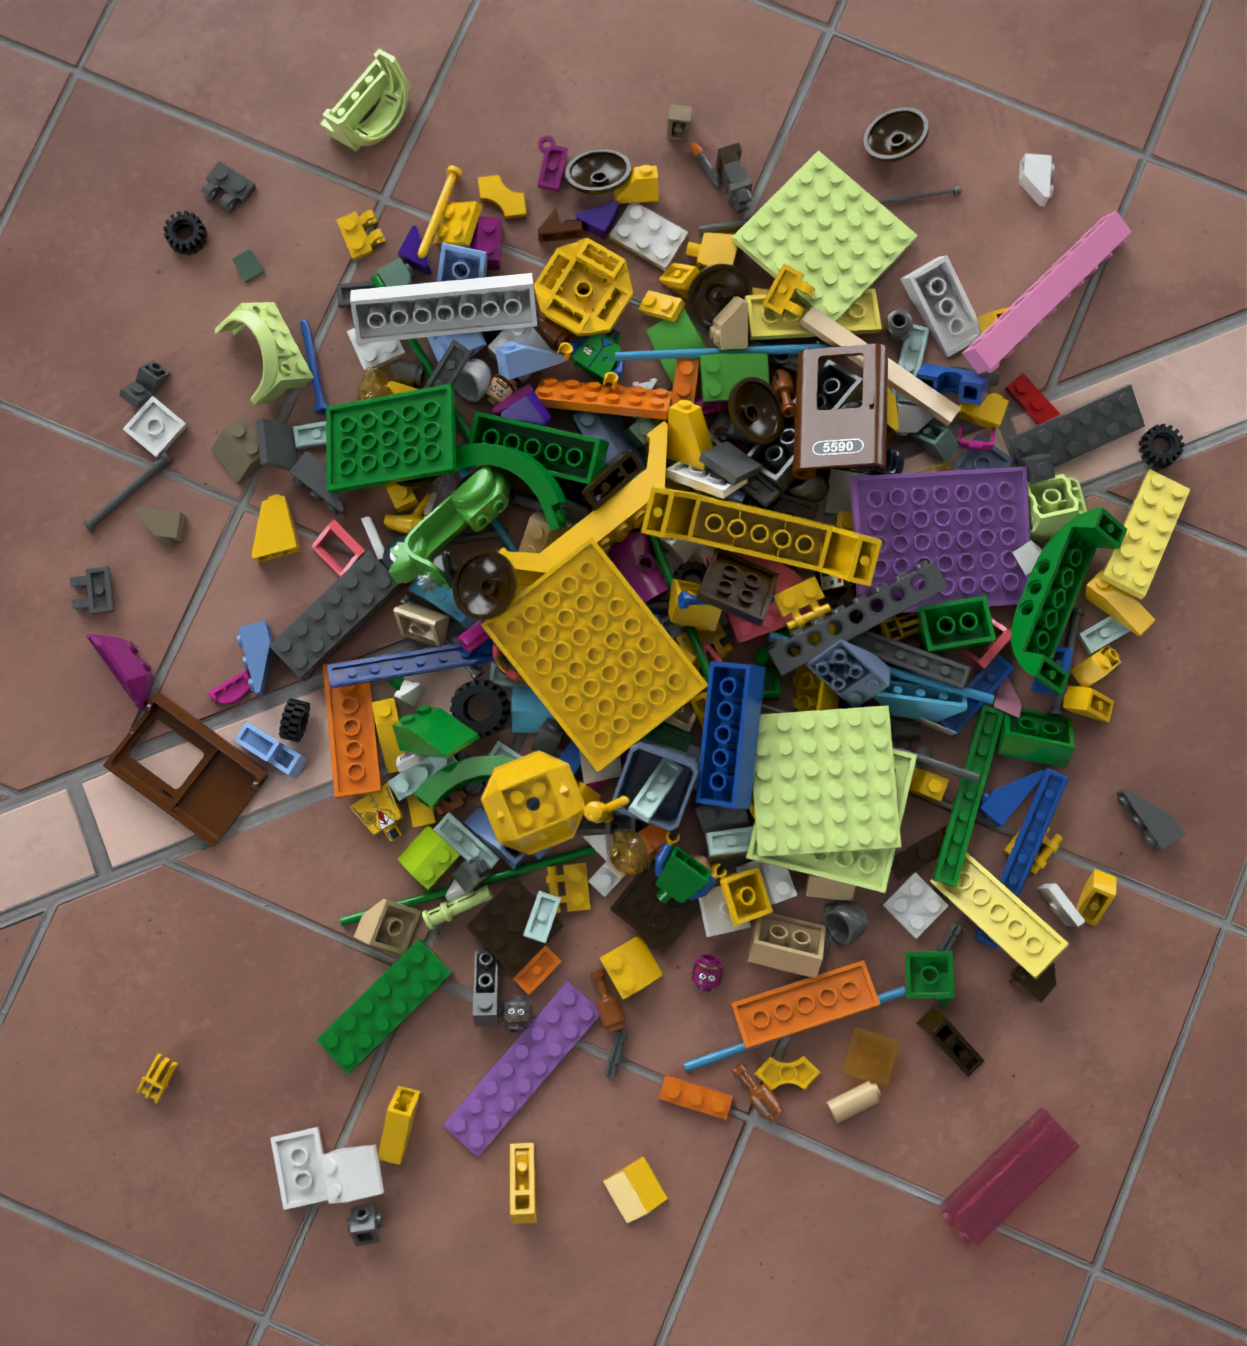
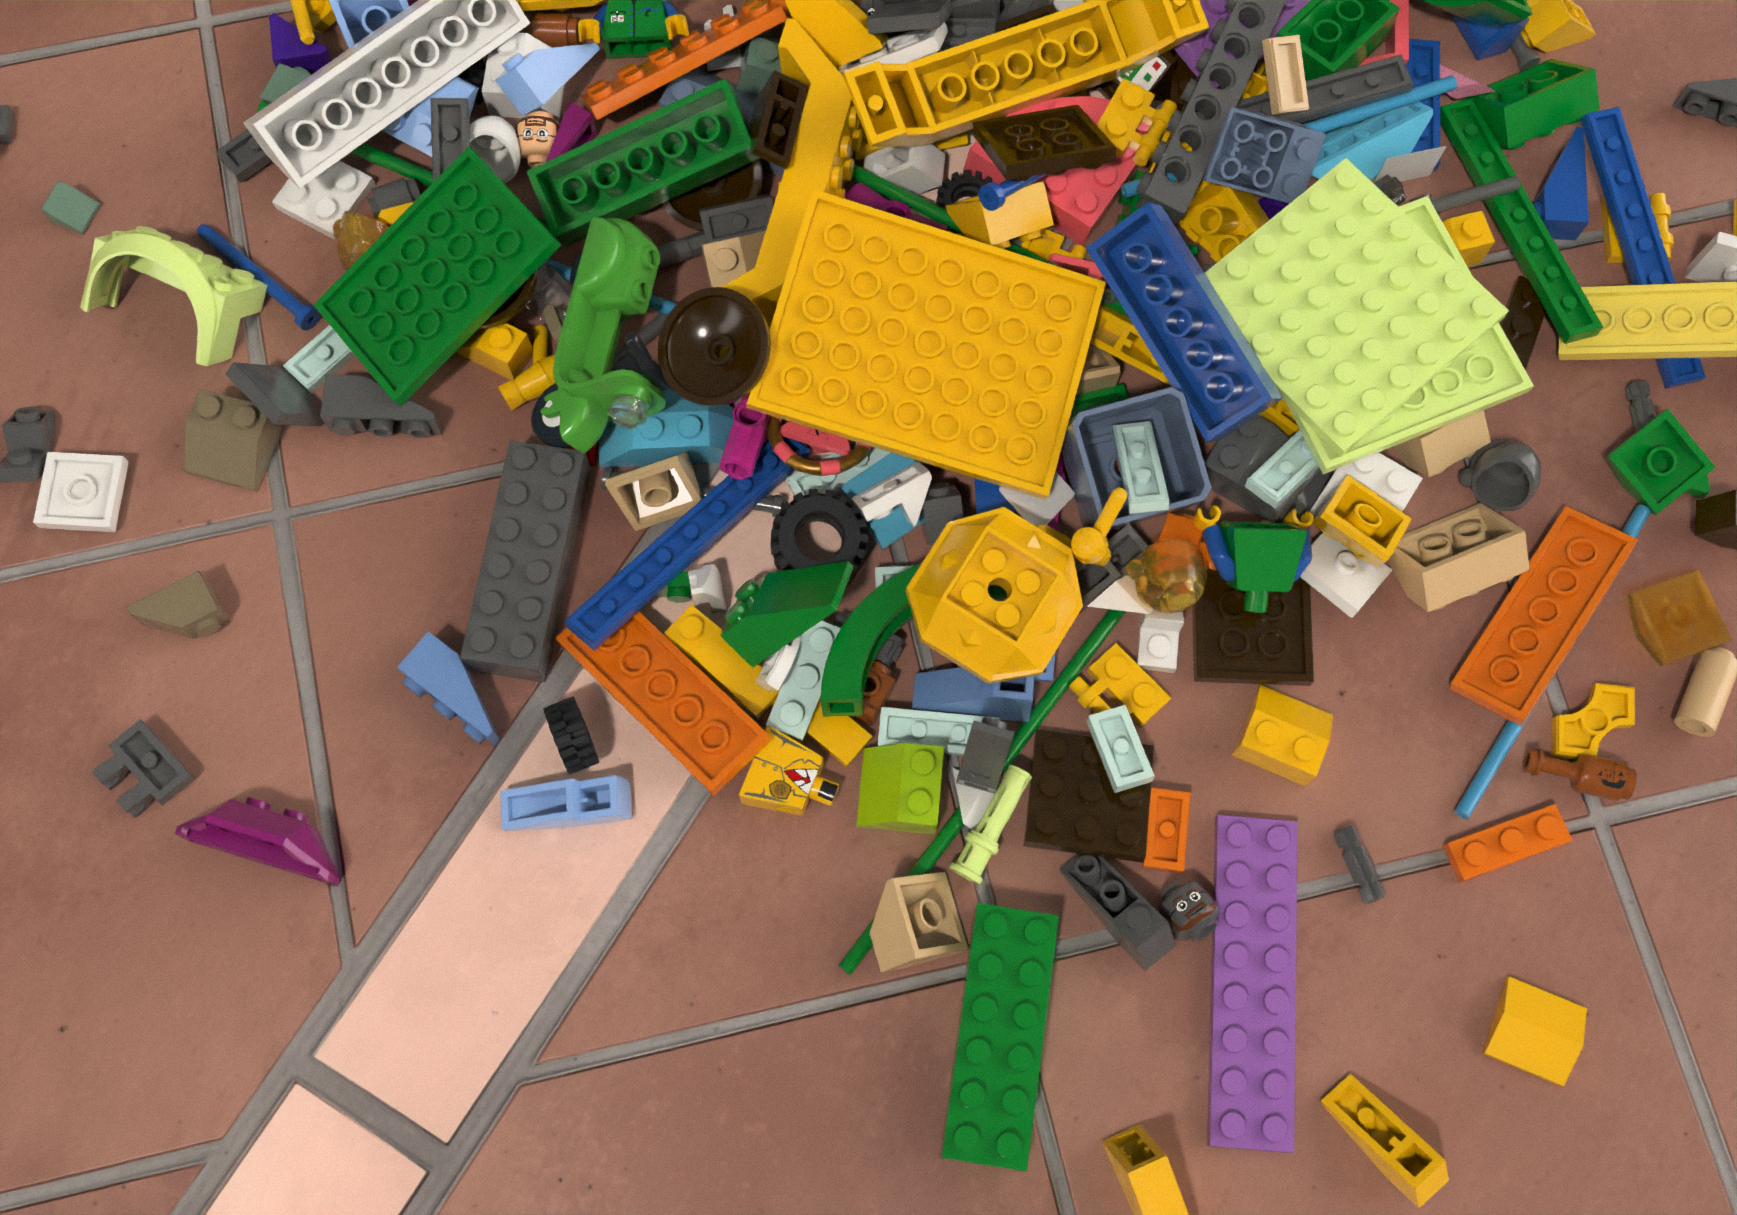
camera: 40 degrees left, 10 degrees down
(127, 492) = (99, 604): dark grey bar -> none
(215, 788) = (522, 922): reddish brown piece -> none
(232, 690) = (448, 764): dark pink tile -> none
(275, 530) = (358, 510): yellow slope -> none
(334, 527) = (465, 455): coral tile -> none
(355, 237) = (198, 85): yellow plate -> none
(374, 537) = (501, 424): white tile -> none
(525, 467) = (630, 185): green arch -> none
(528, 410) = (594, 120): dark purple slope -> none
(532, 712) = (903, 489): none -> white slope
(608, 1006) = (1297, 806): dark orange piece -> none
(707, 972) = (1388, 666): magenta head -> none
(894, 638) = (1285, 74): none -> tan tile
(915, 905) = (1565, 398): white plate -> none

